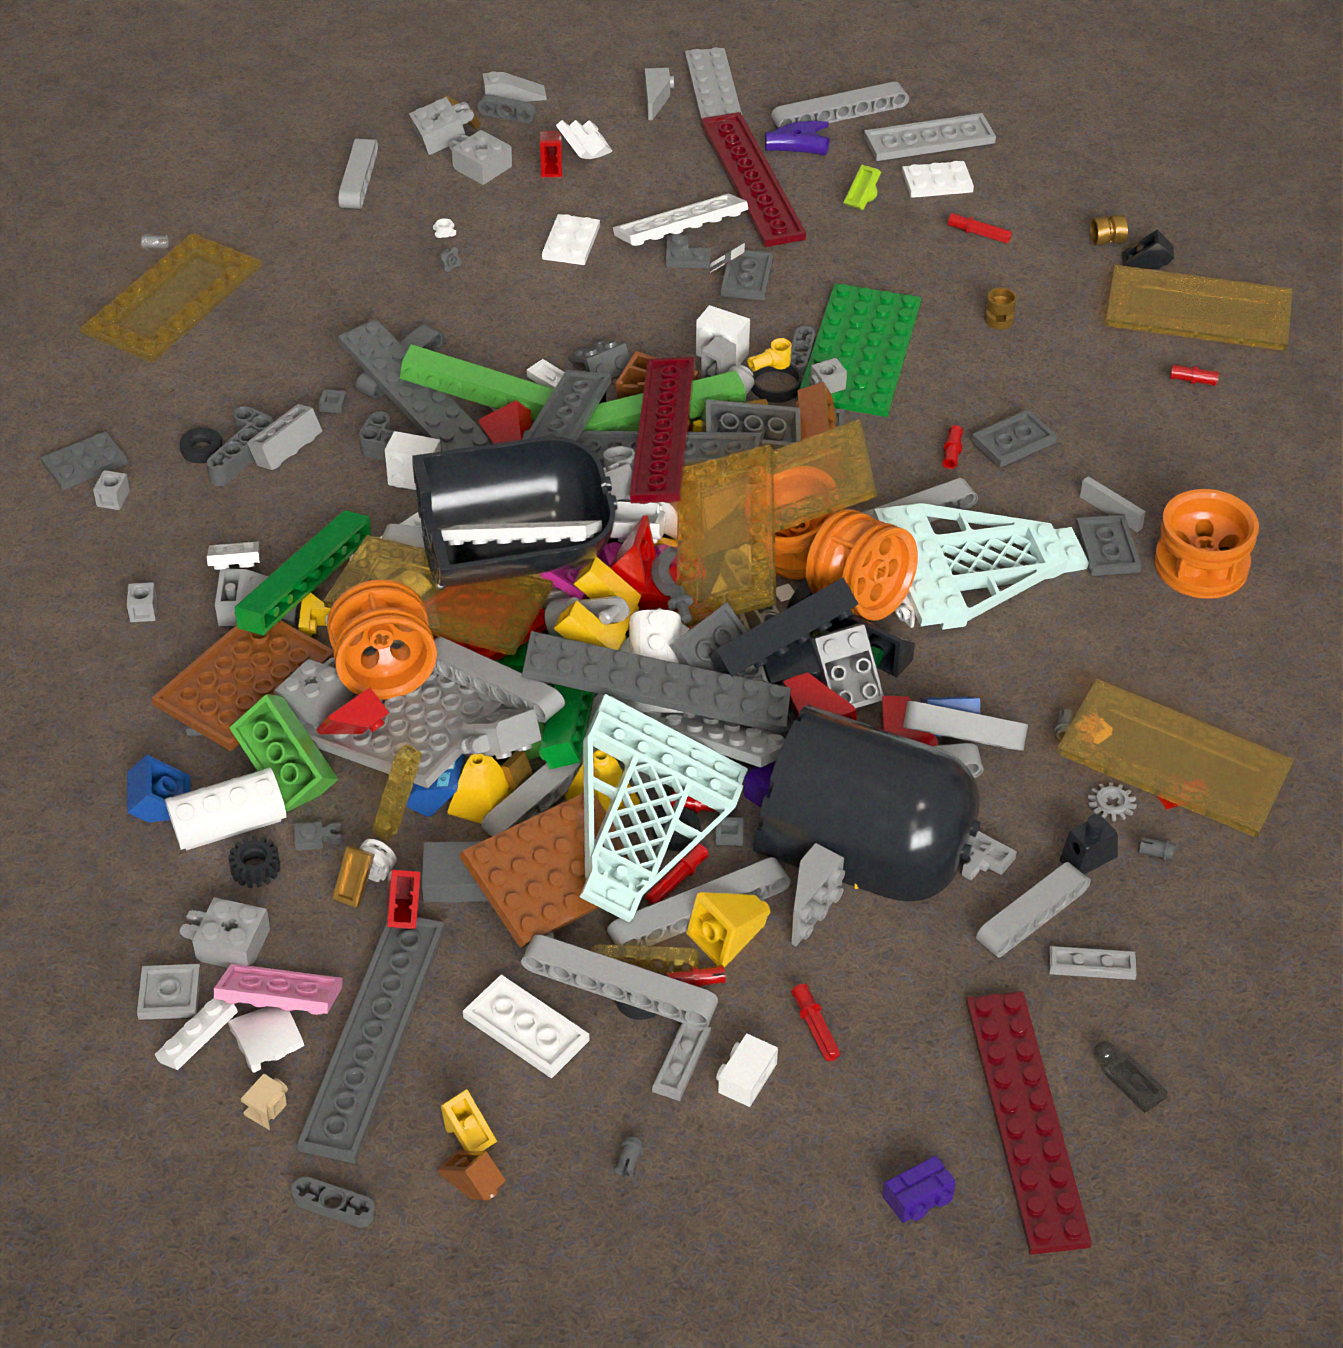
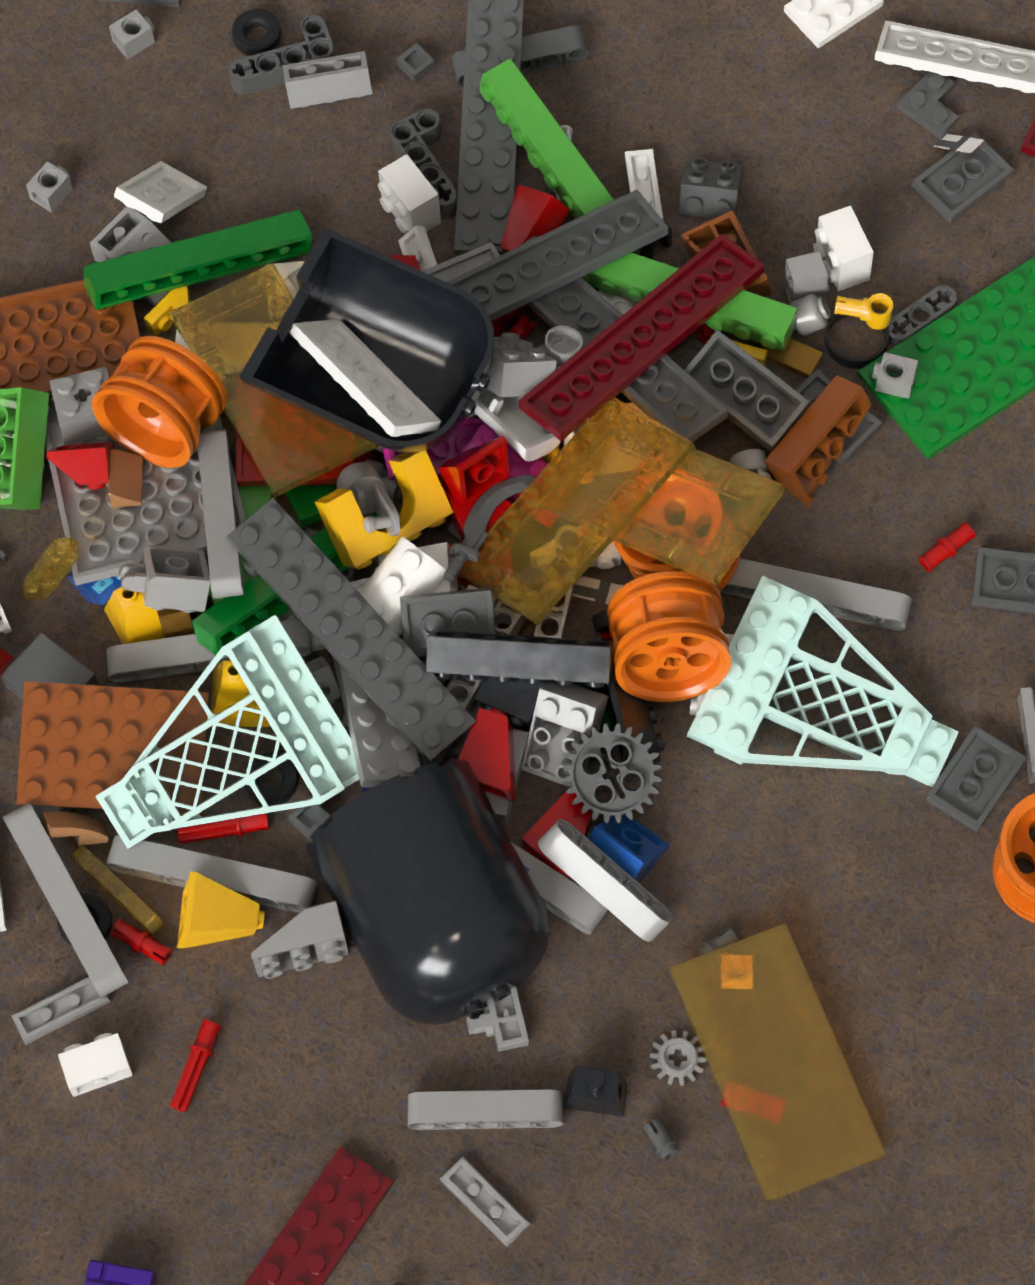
camera: 45 degrees right, 20 degrees up
(400, 713) = (125, 479): none -> medium nougat slope
(580, 938) = (81, 827): none -> medium nougat slope
(918, 641) = (586, 783): none -> dark grey gear

